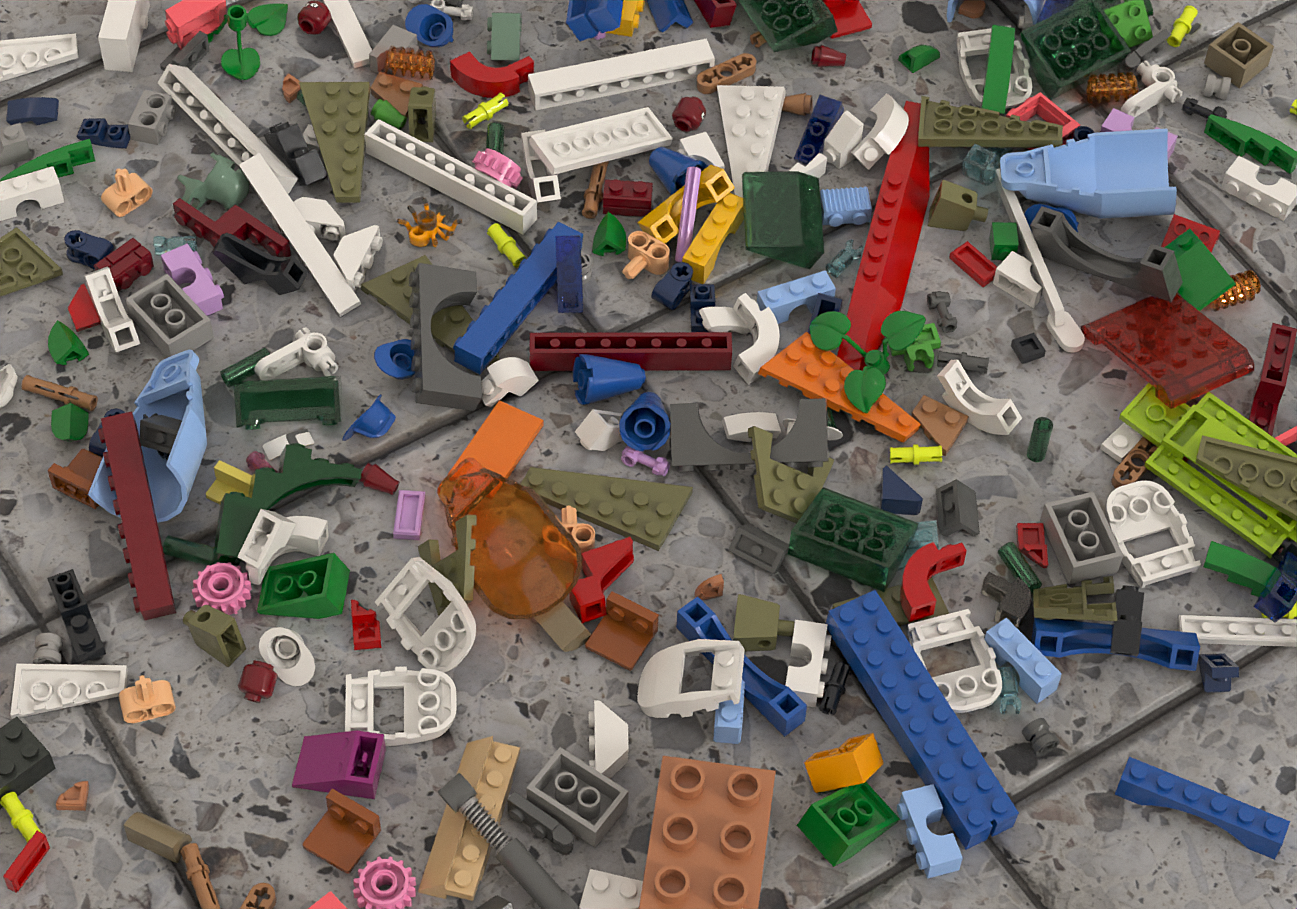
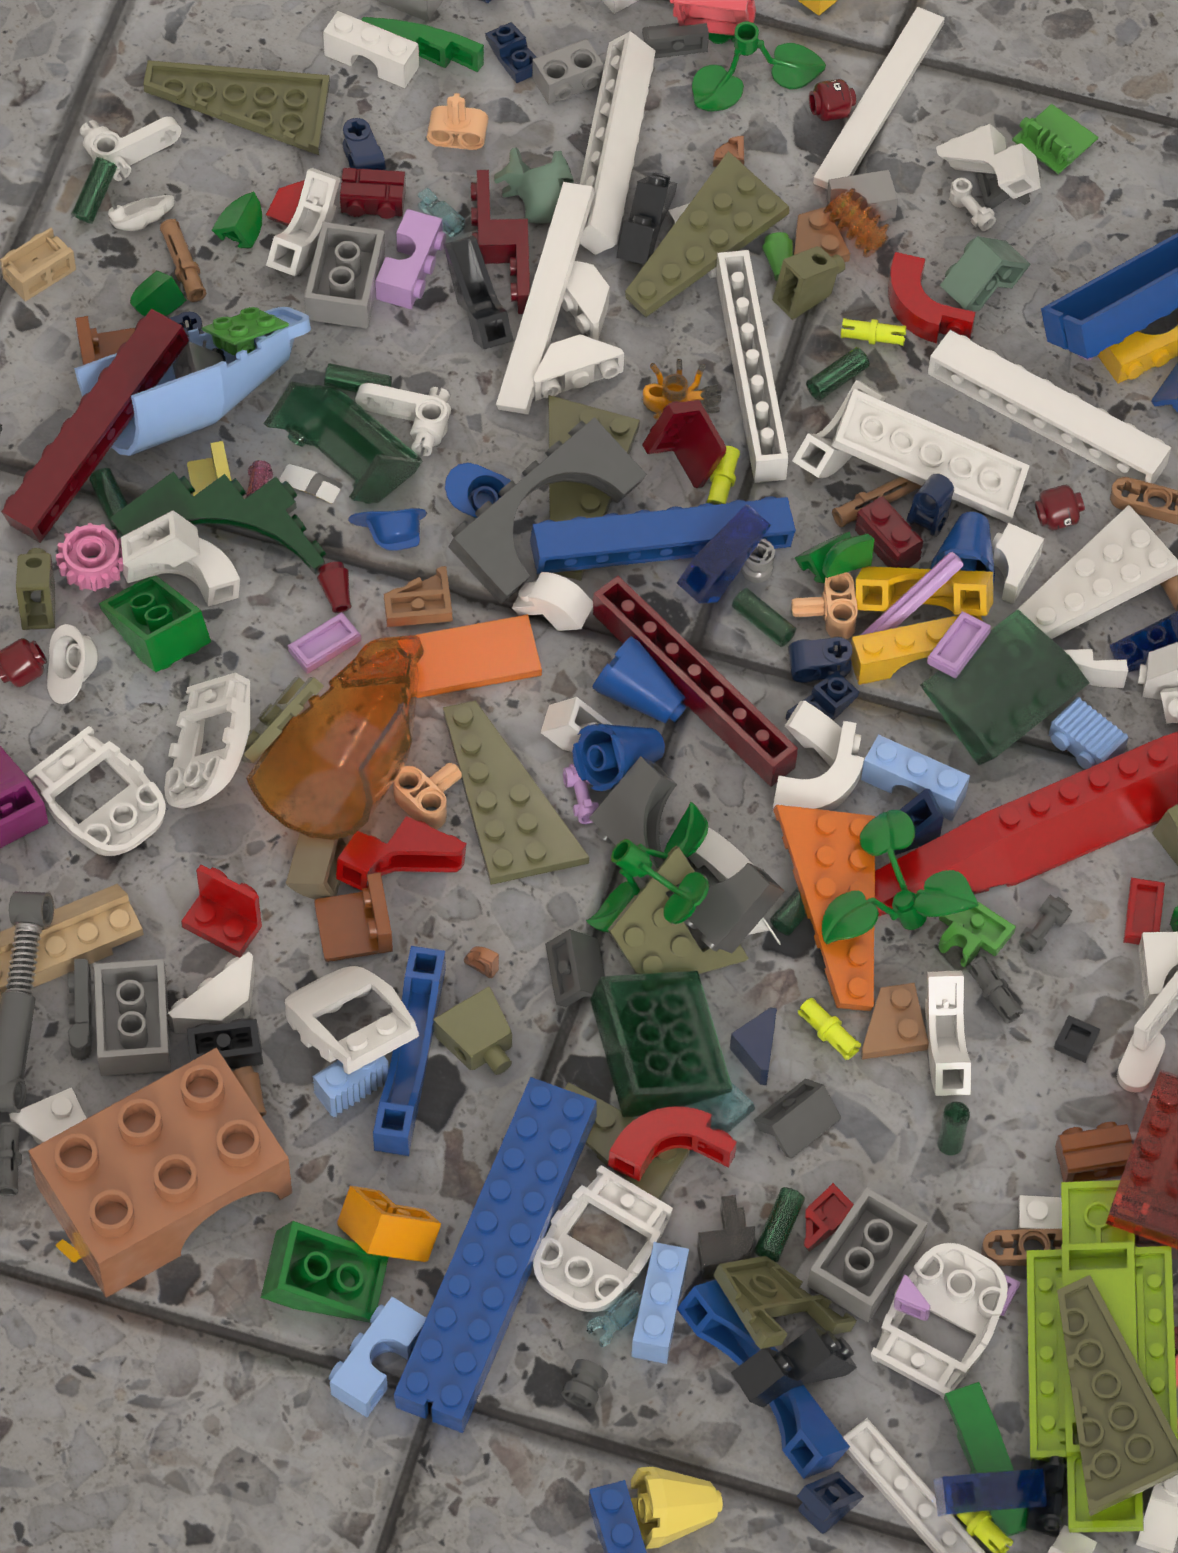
camera: 50 degrees right, 5 degrees up
(162, 390) = (237, 332): none -> bright green hinge
(365, 627) = (164, 705): red slope -> none
(430, 25) = (924, 202): blue piece -> none
(434, 445) = (420, 601): none -> medium nougat wing
(472, 238) = (691, 436): none -> dark red bracket
(498, 167) = (797, 396): bright pink gear -> none
(549, 695) = (224, 912): none -> red bracket
(618, 293) = (764, 617): none -> clear green piece
(627, 220) = (849, 555): none -> green brick
(631, 162) = (932, 504): none -> dark blue piece
(645, 761) = (236, 1042): none -> black brick
(741, 212) = (959, 644): none -> lavender tile
(790, 448) = (636, 862): none -> green plant
(809, 644) = (449, 1124): white arch -> none
(834, 688) = (468, 1155): black axle -> none
(843, 259) = (1017, 784): clear light blue bar -> none
(1107, 391) = (1093, 1152): none -> dark orange brick
(1133, 533) = (911, 1301): none -> lavender slope
(1160, 745) = (672, 1505): none -> light yellow cone

